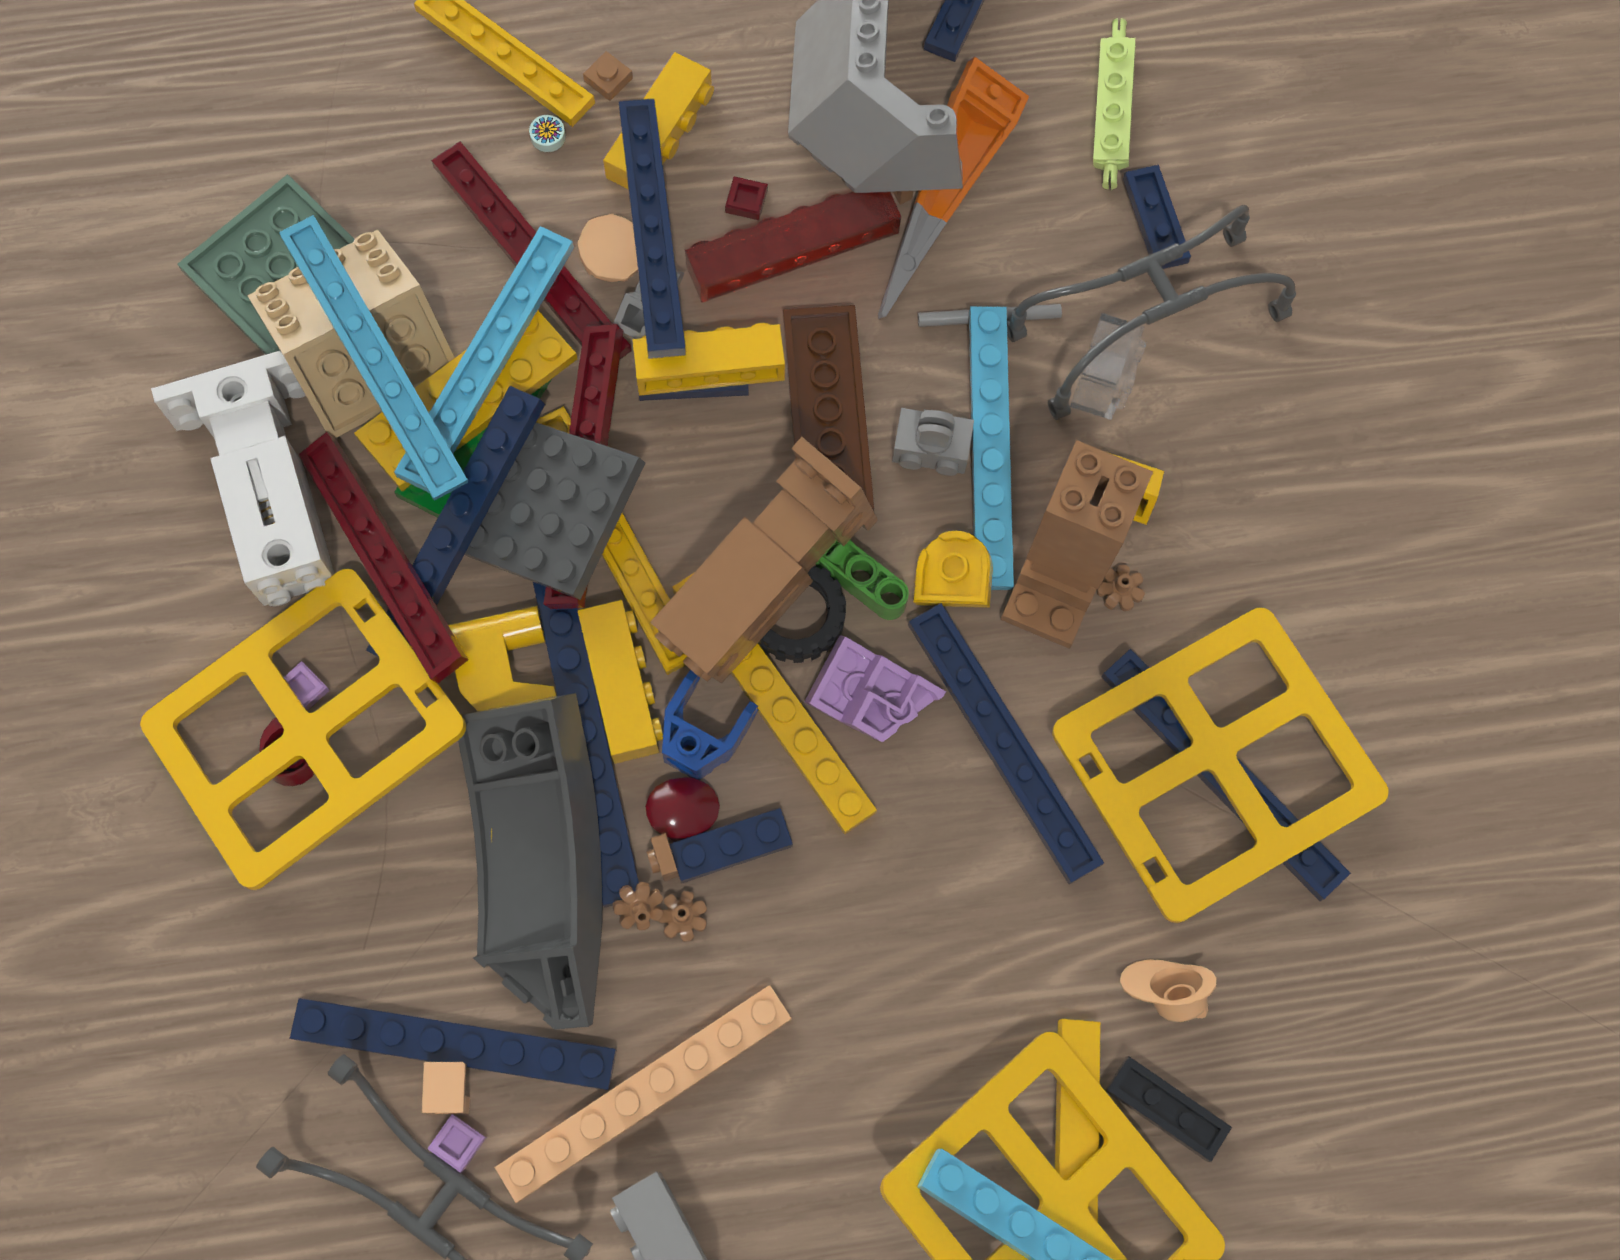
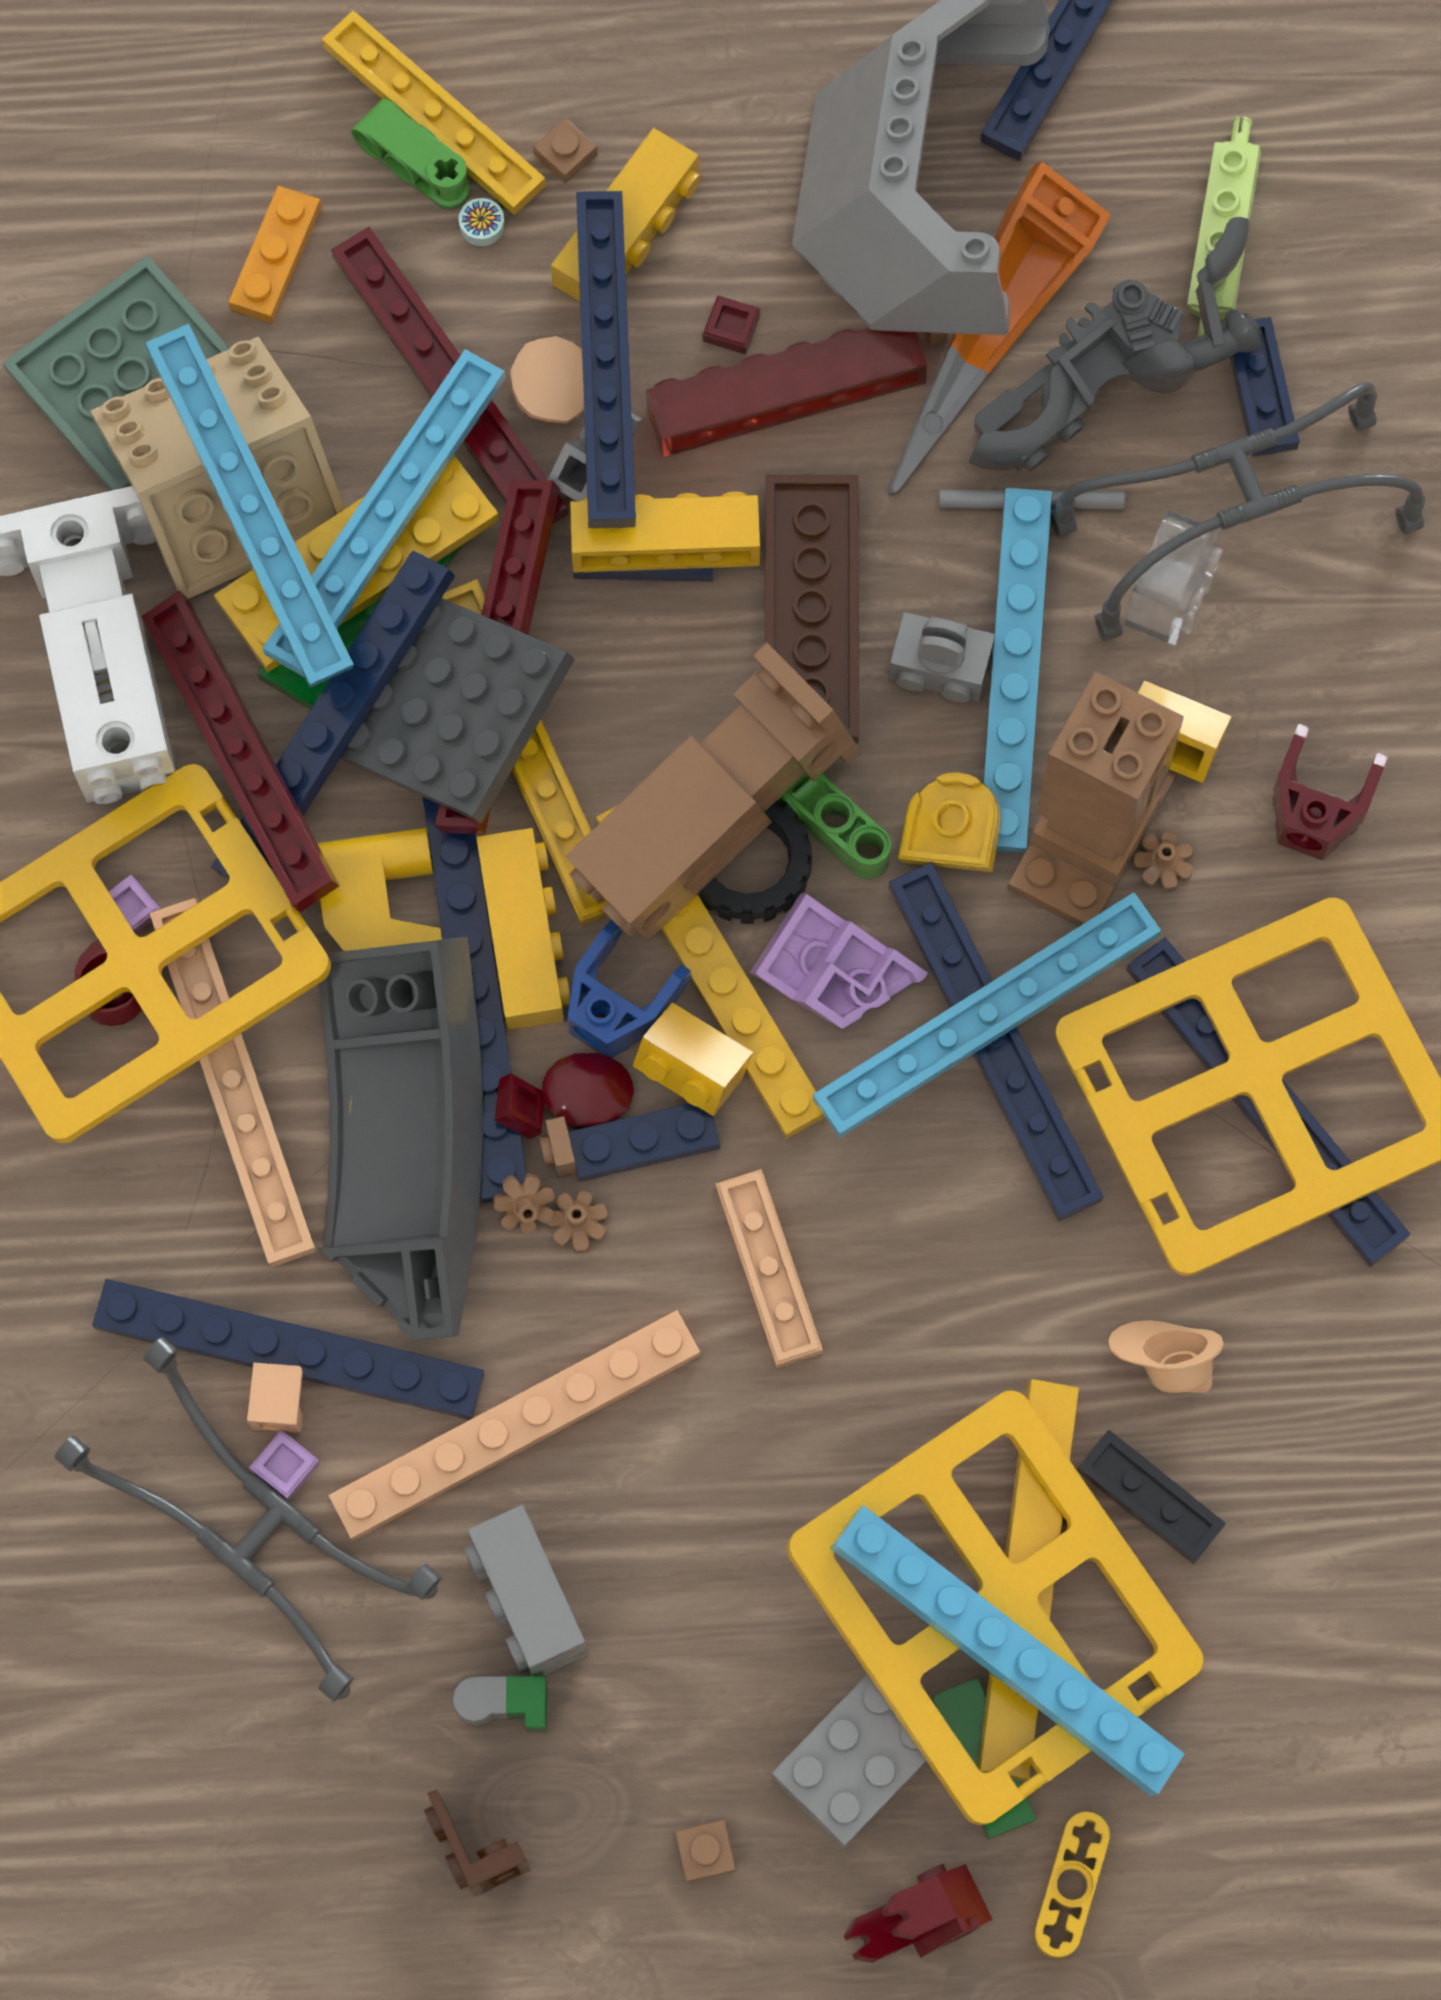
camera: 10 degrees right, 0 degrees up
(388, 168) = (275, 254): none -> light orange plate
(402, 846) = (241, 1108): none -> light nougat plate
(491, 85) = (413, 154): none -> bright green piece
(628, 826) = (519, 1106): none -> dark red tile
(765, 777) = (692, 1059): none -> yellow brick
(841, 943) = (769, 1268): none -> light nougat tile
(996, 724) = (986, 1015): none -> medium azure plate
(1056, 186) = (1127, 338): none -> dark grey piece
(1234, 546) = (1311, 818): none -> dark red piece

